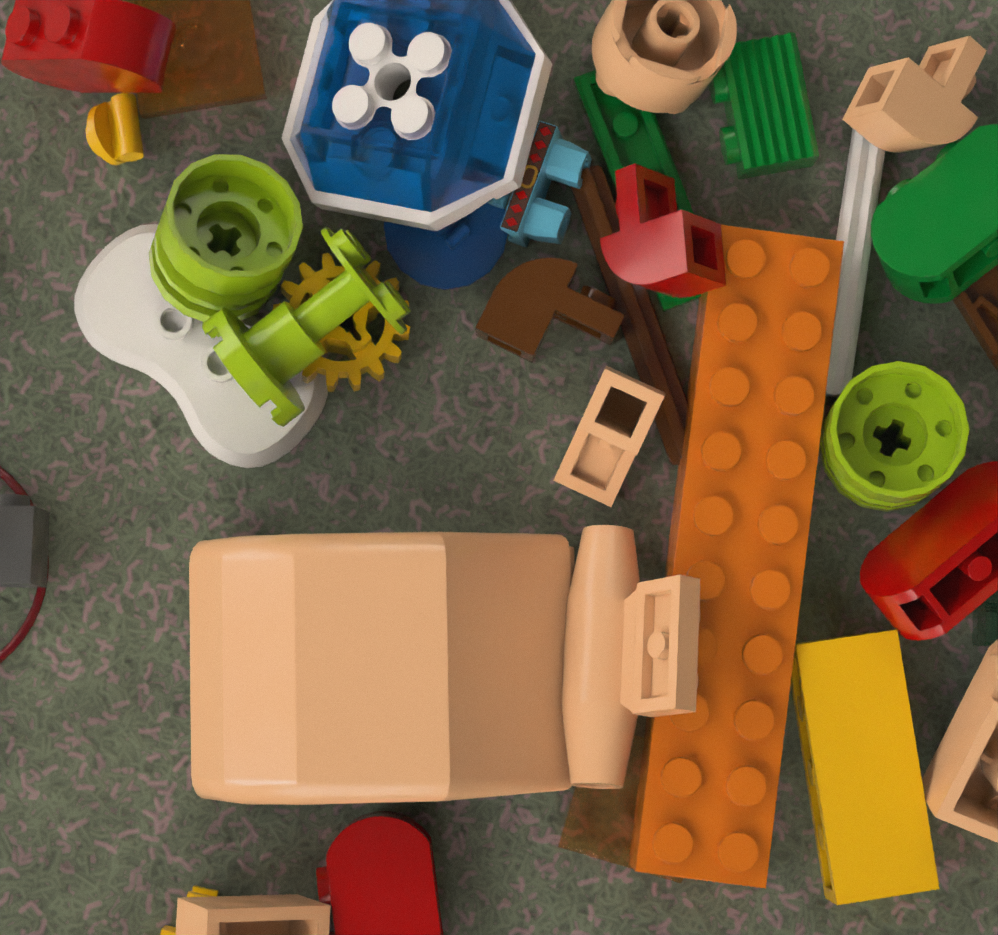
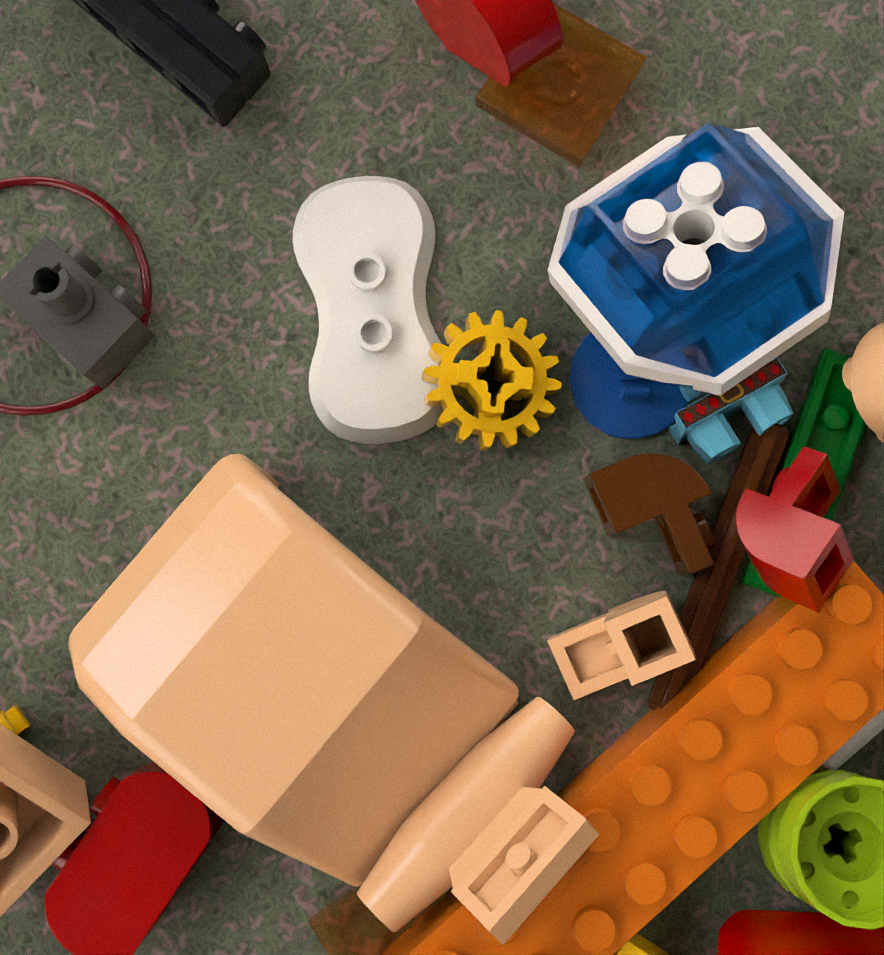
camera: 45 degrees right, 0 degrees up
(115, 130) = (447, 93): yellow plate -> none
(225, 237) = (458, 238): lime wheel -> none
(290, 338) = (437, 358): lime piece -> none

